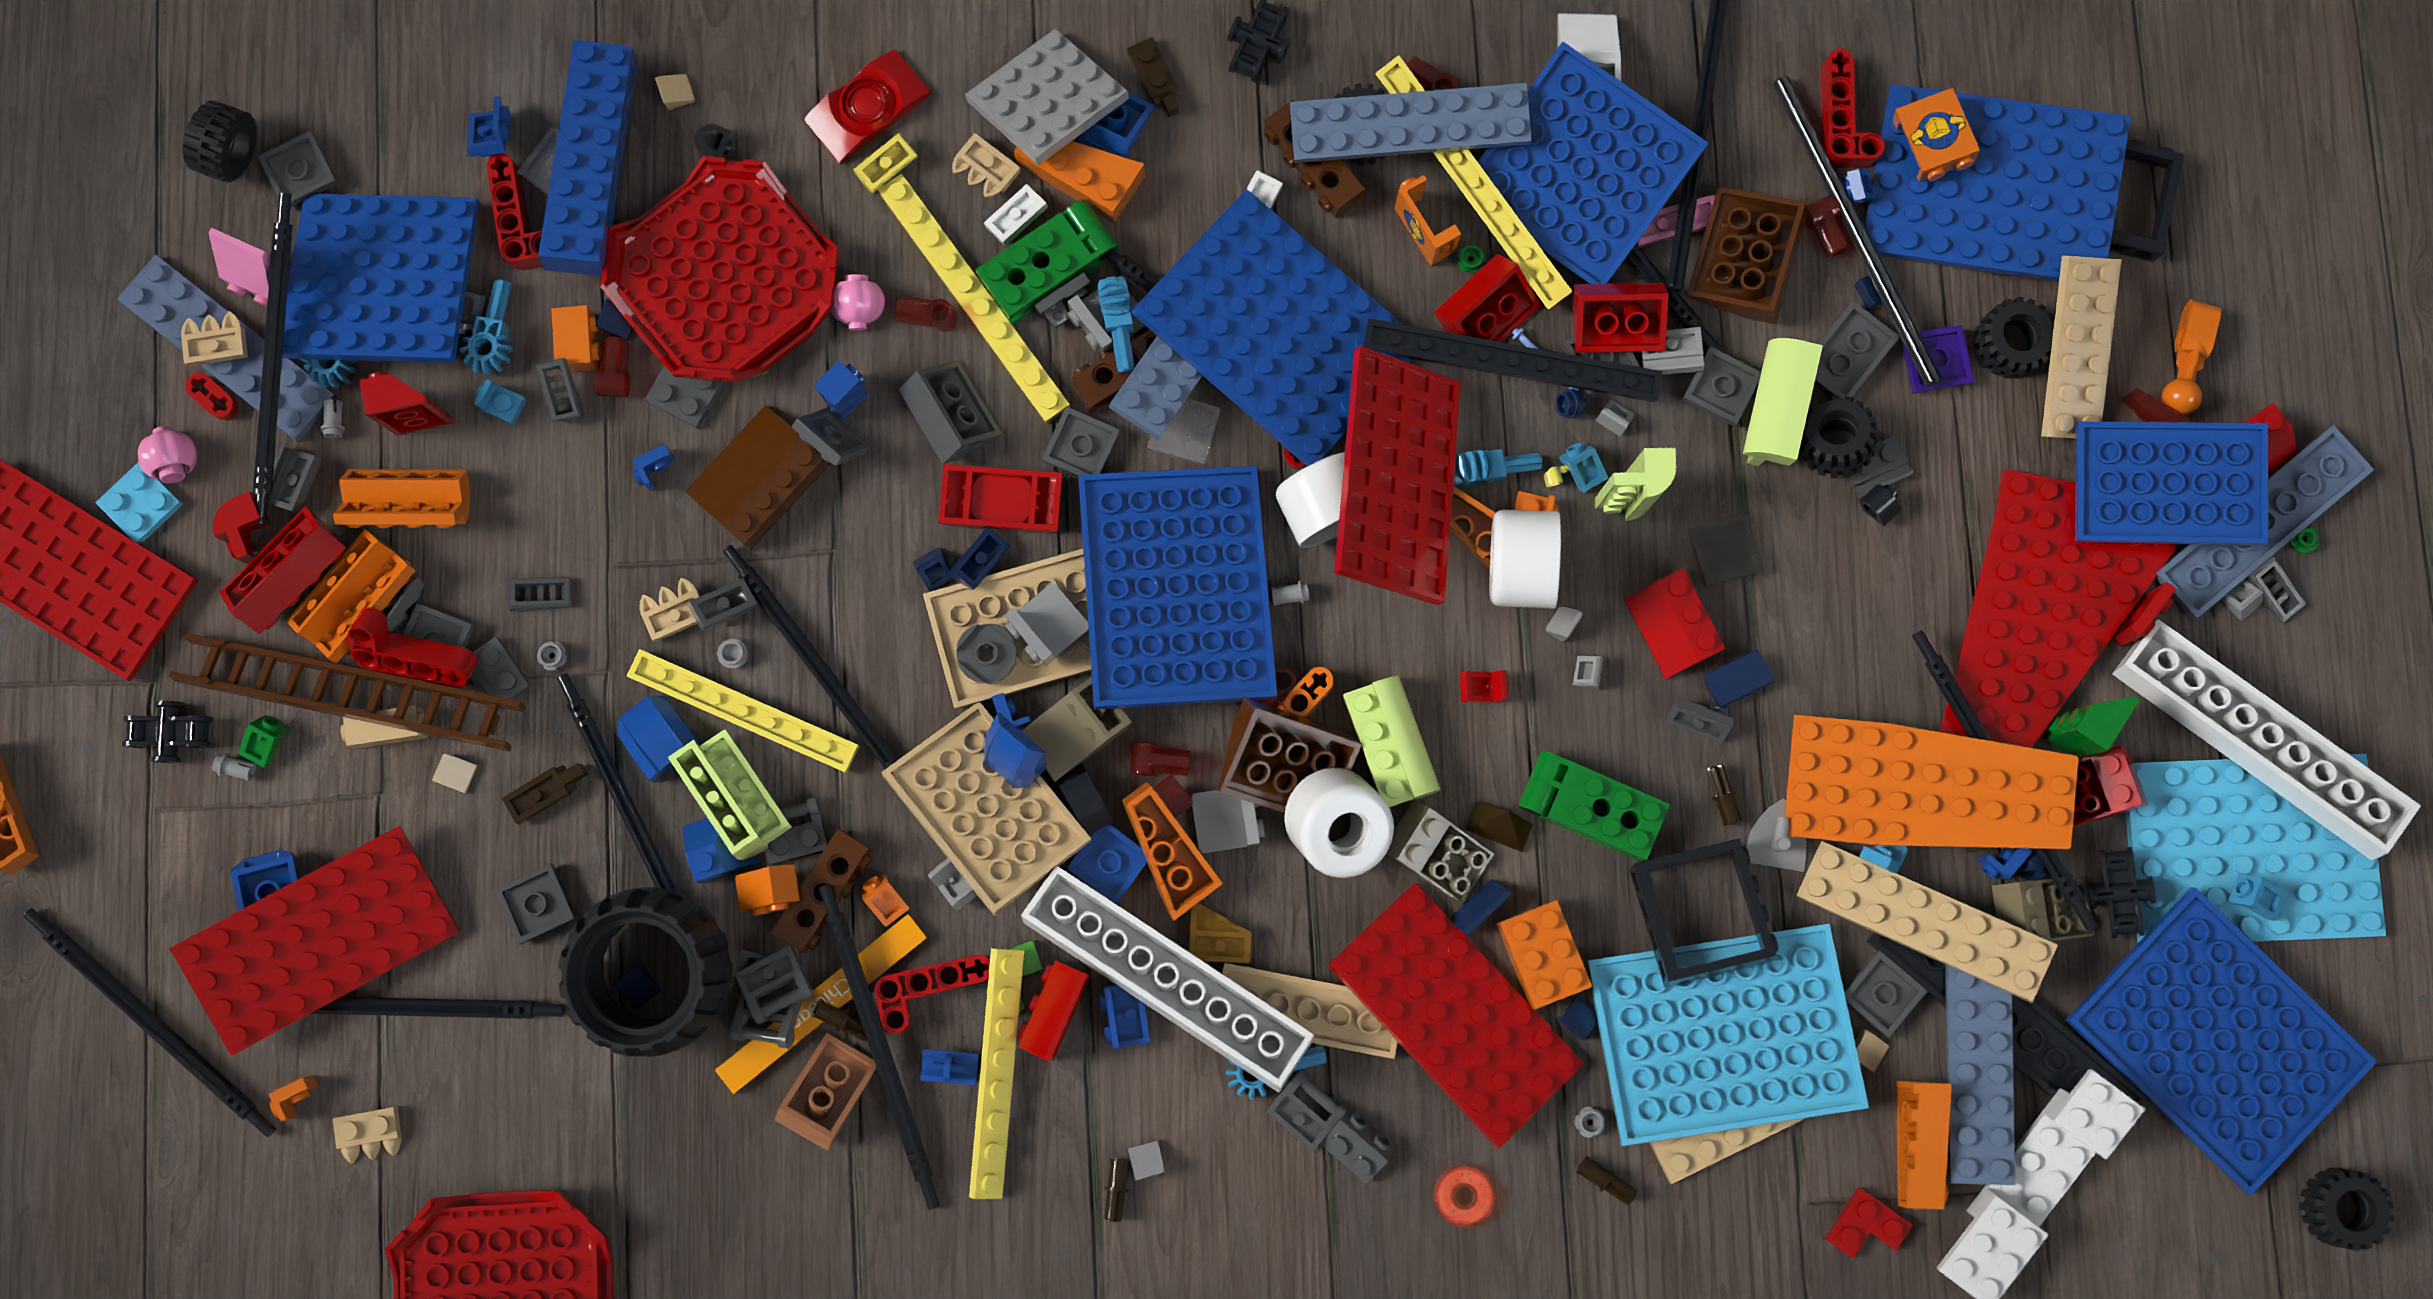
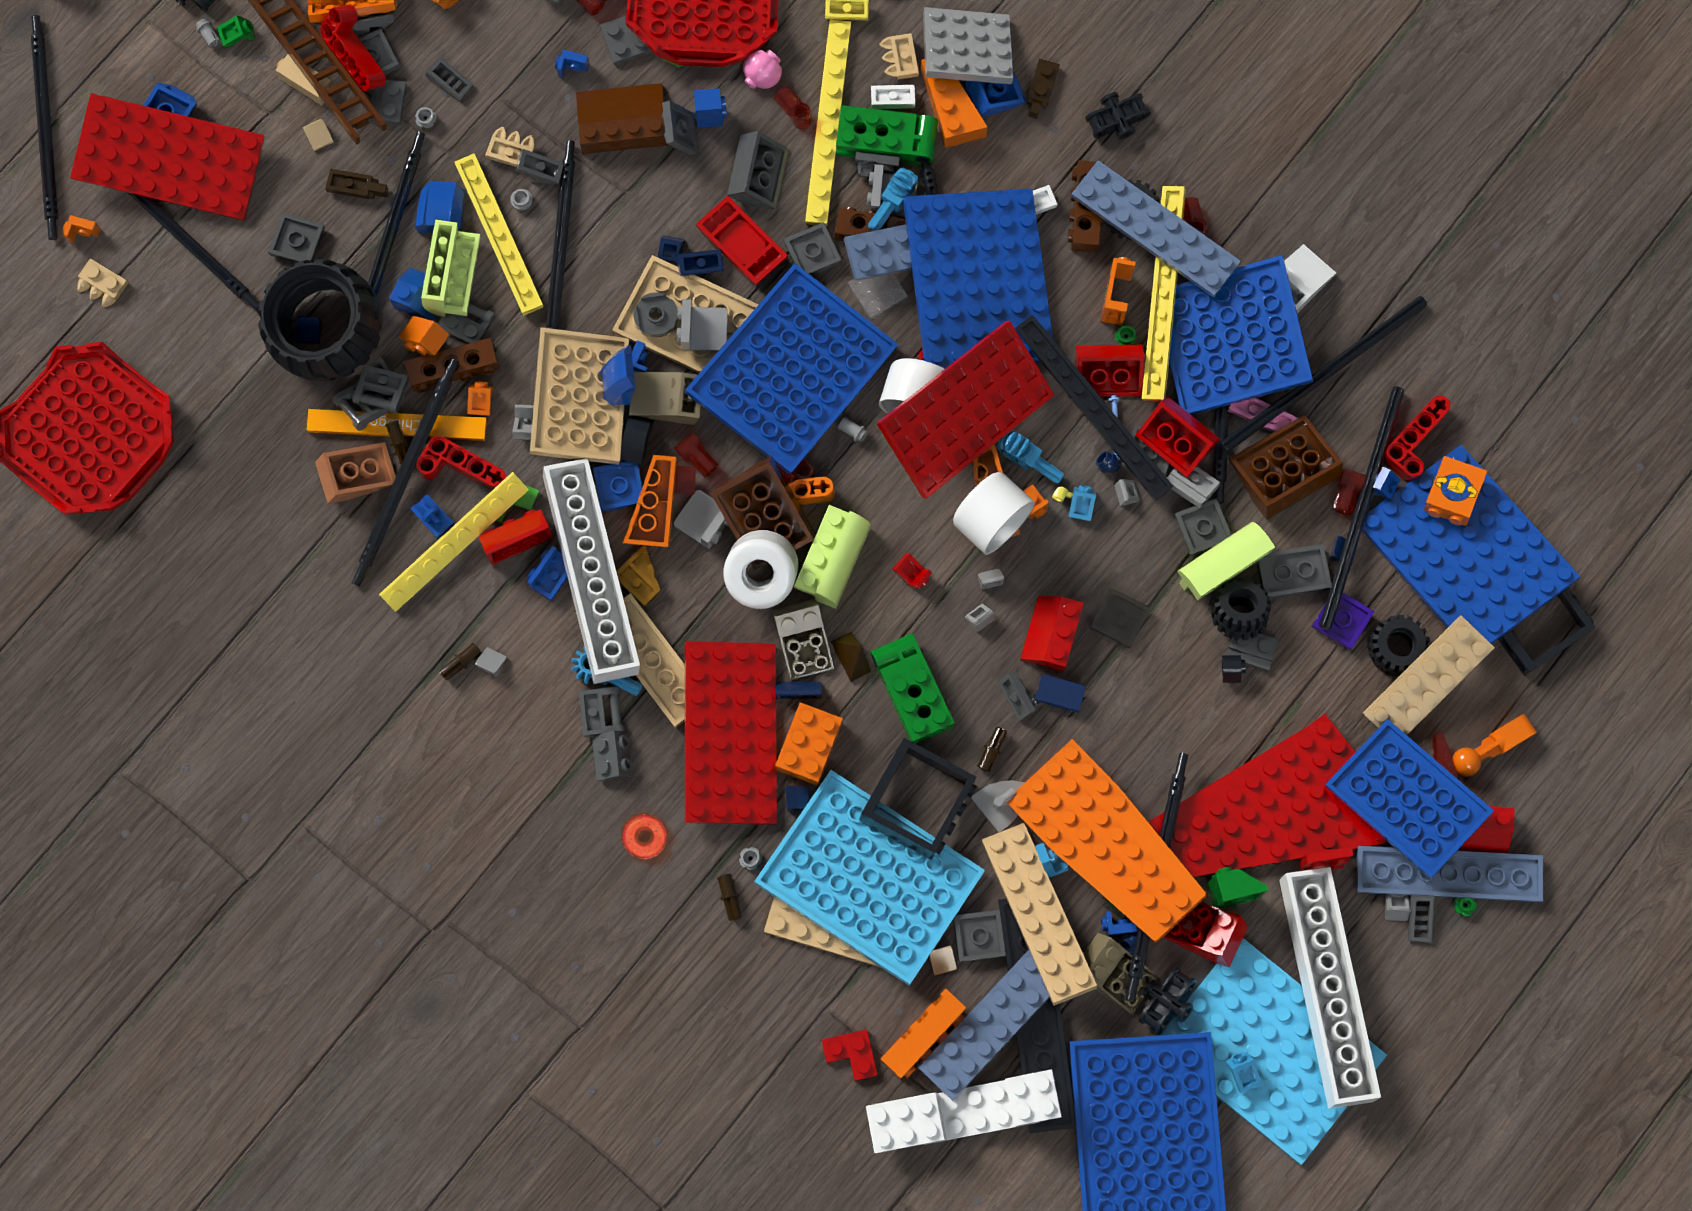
camera: 40 degrees right, 5 degrees down
(1640, 485) = (1097, 535): yellowish green brick -> none

